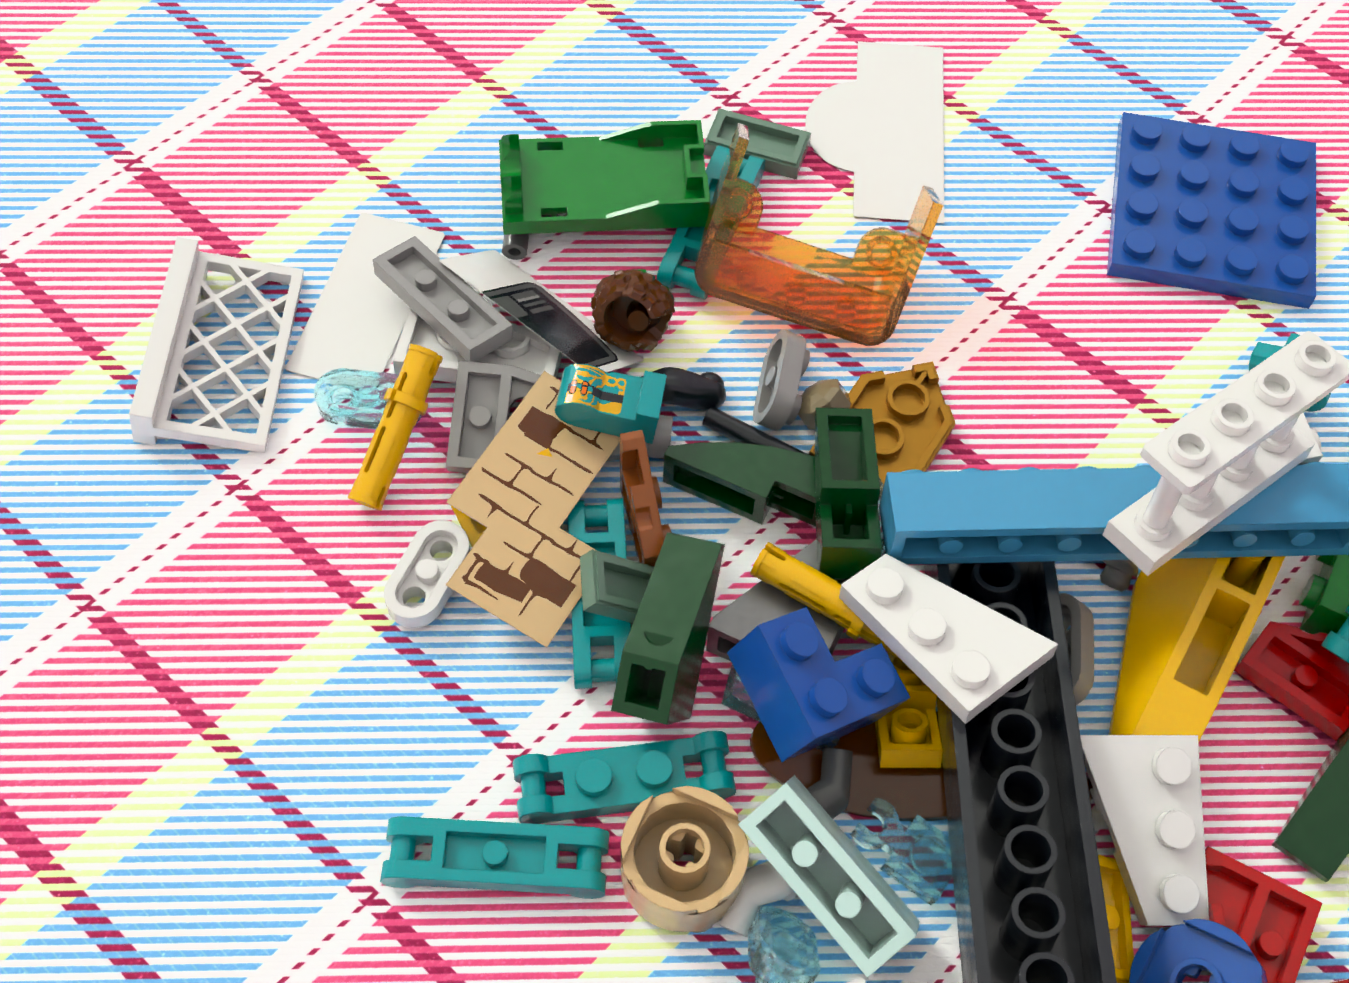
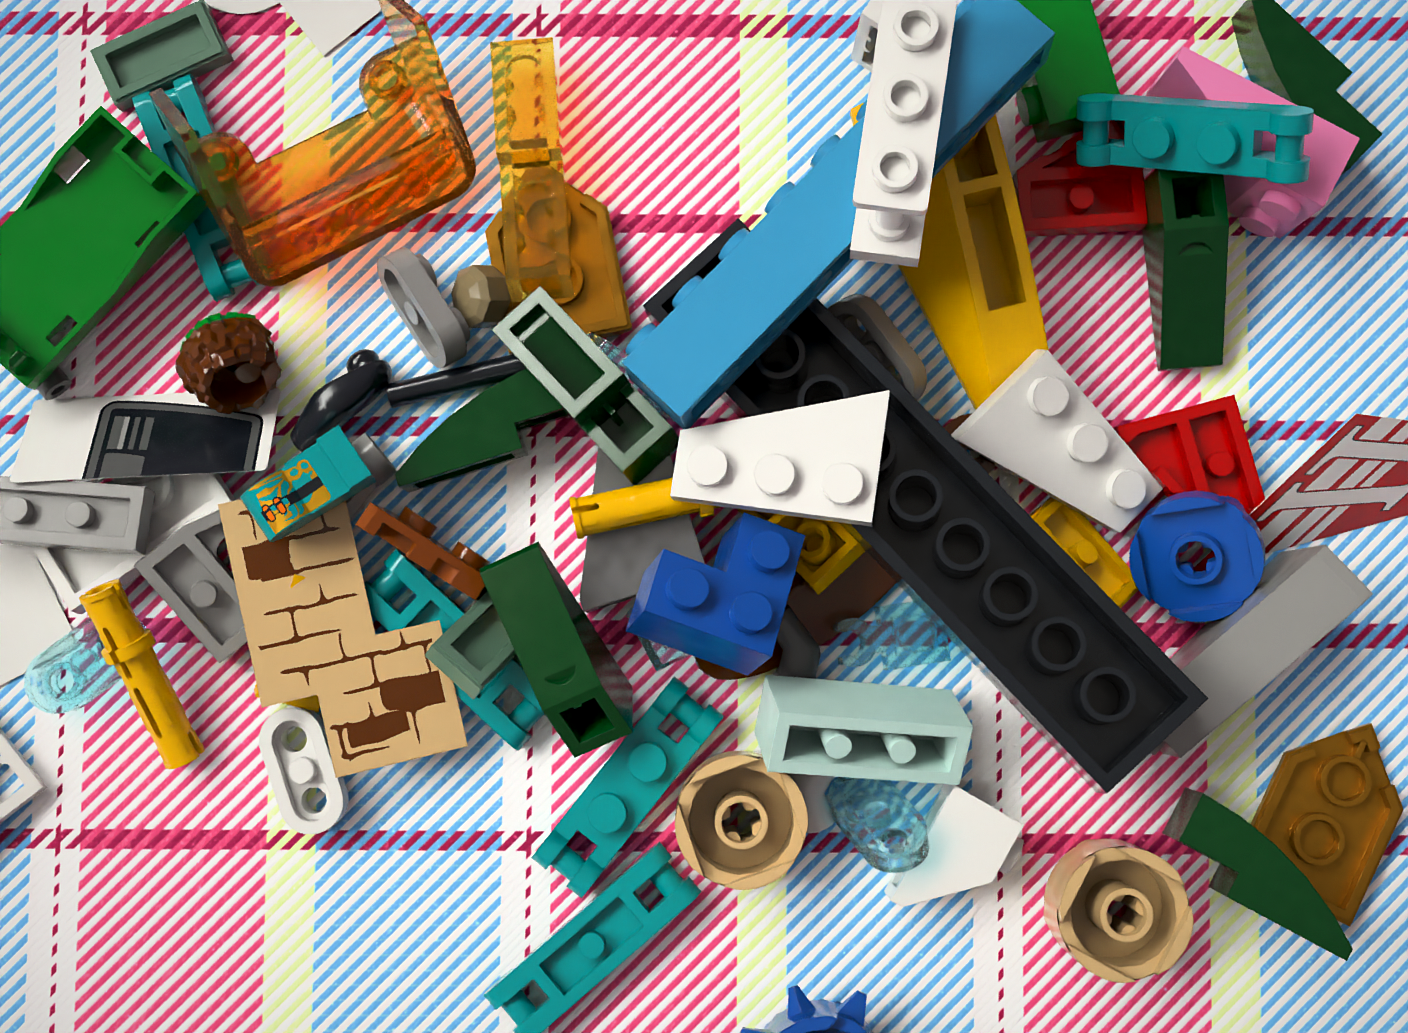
camera: 40 degrees left, 25 degrees up
(928, 359) = (531, 168): none -> clear yellow slope

